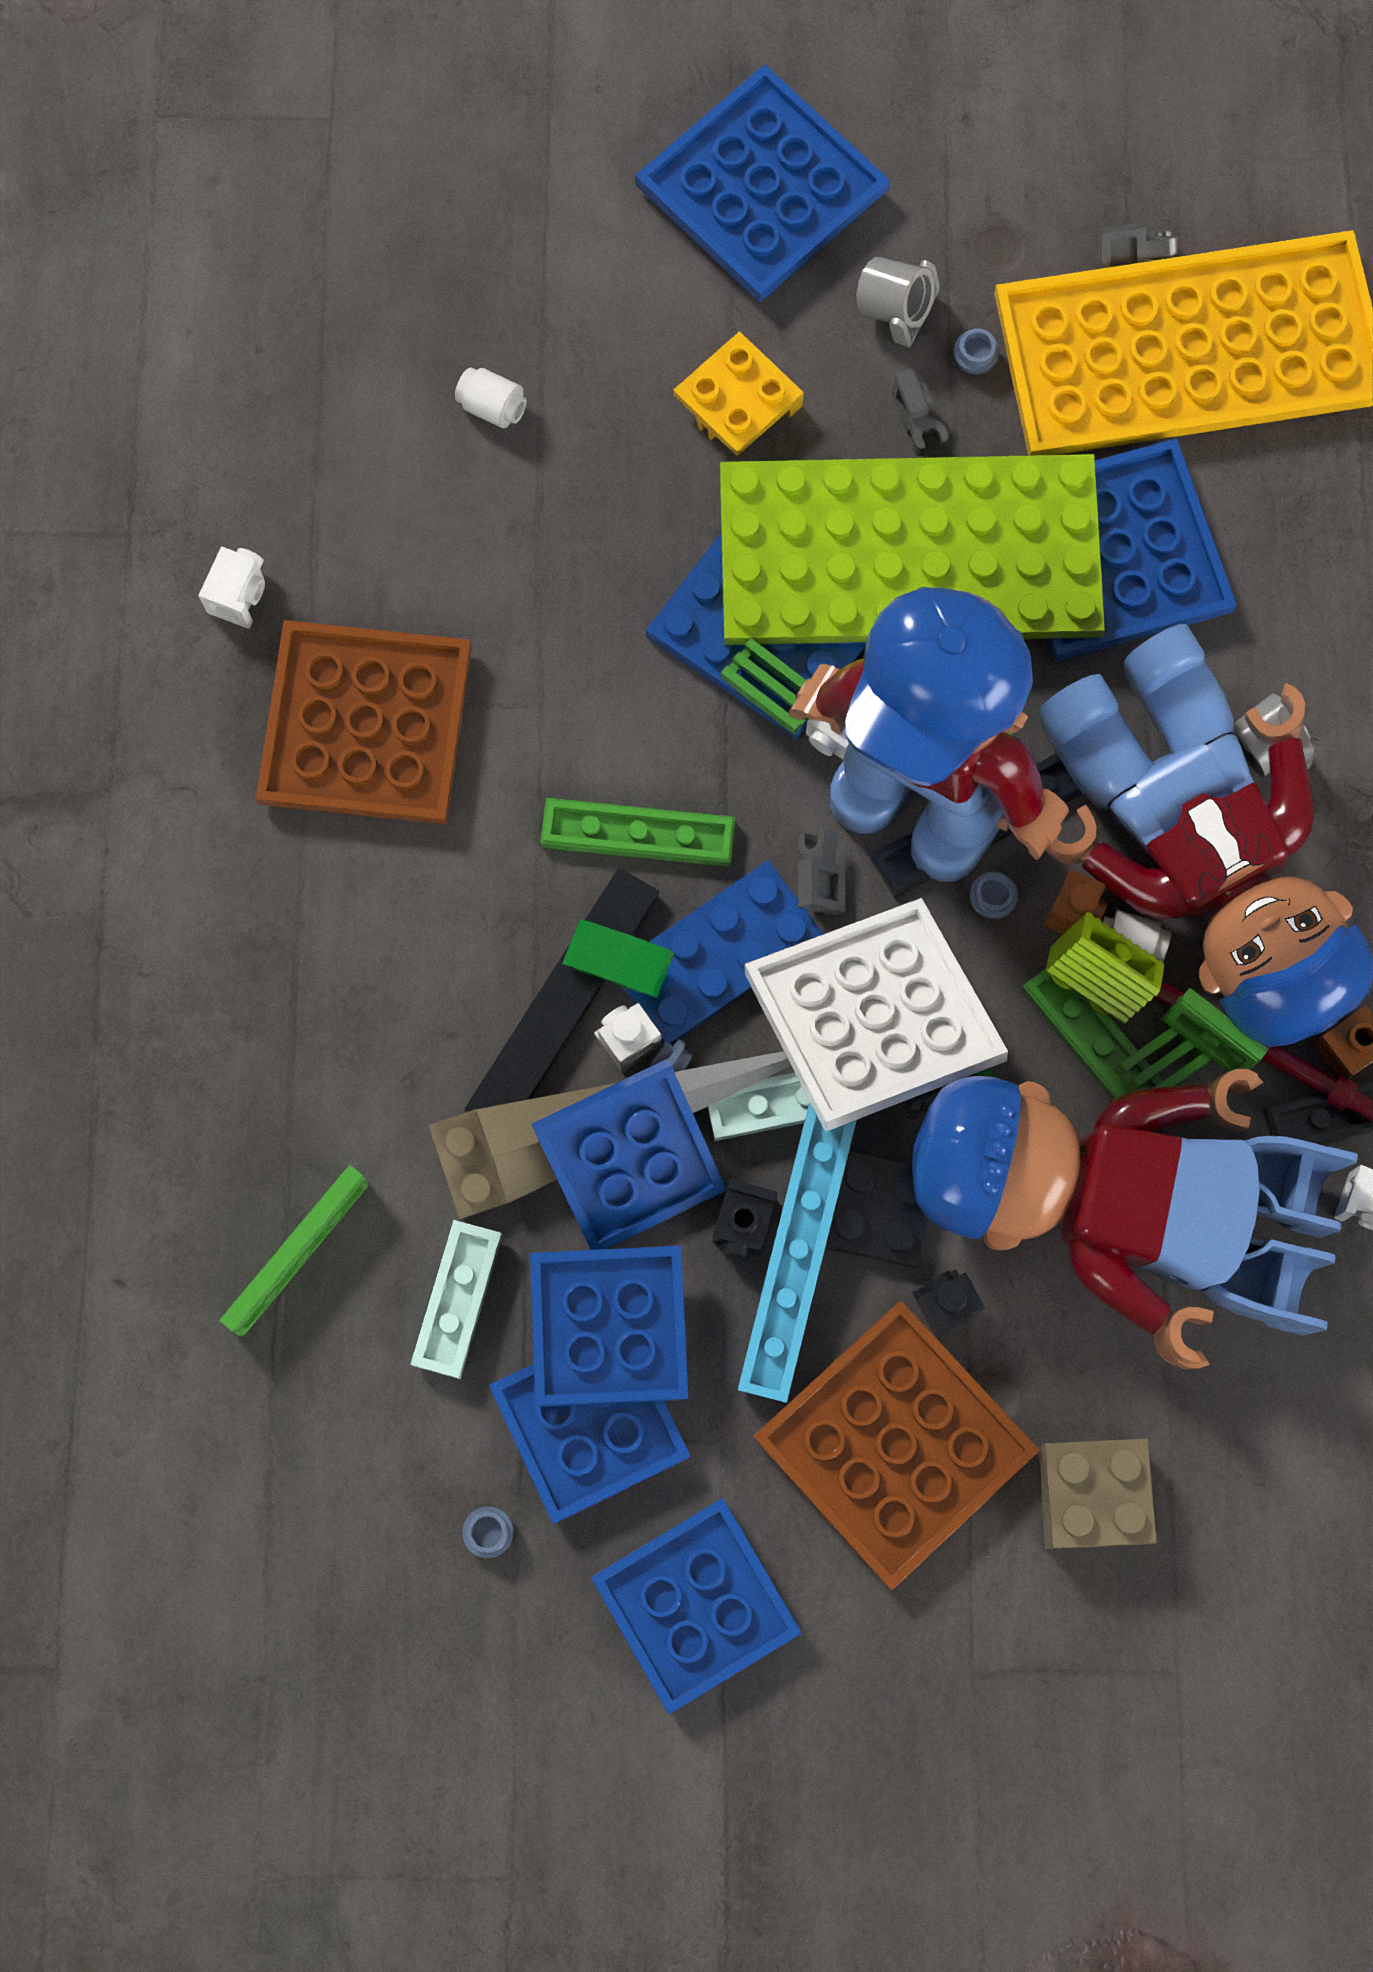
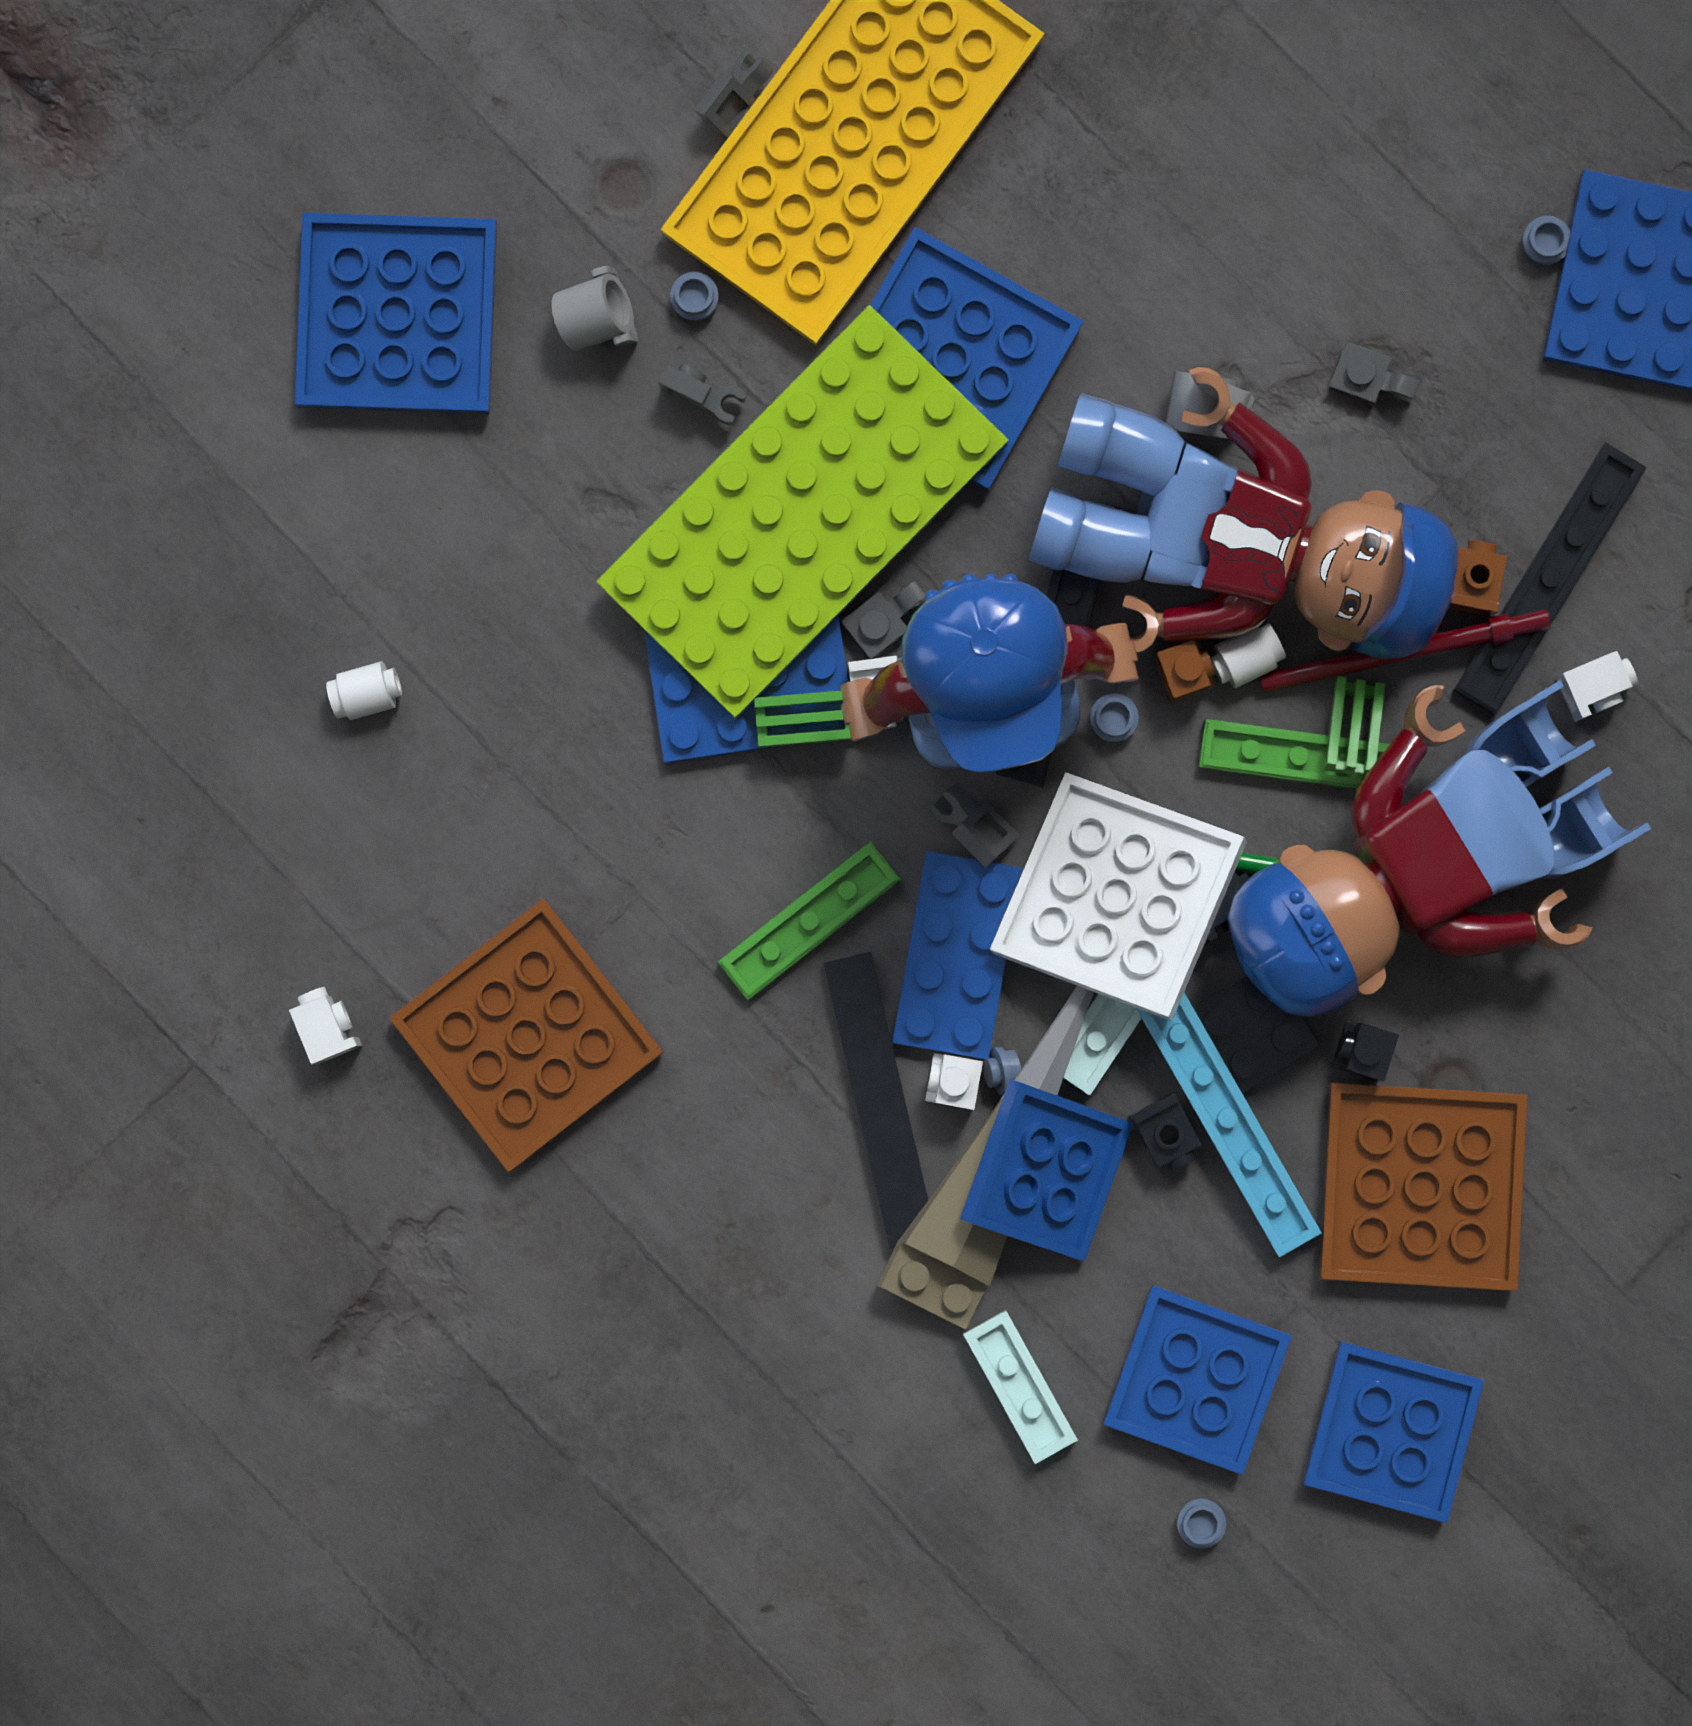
camera: 40 degrees left, 10 degrees up
(295, 1251) = (873, 1466): bright green tile -> none
(608, 1326) = (1150, 1303): blue plate -> none
(618, 958) = (896, 1034): green slope -> none
(738, 394) = (550, 508): yellow piece -> none
(1096, 1494) = (1594, 1087): dark tan brick -> none
(1105, 968) = (1251, 702): lime brick -> none
(1213, 1032) = (1371, 675): bright green tile -> none

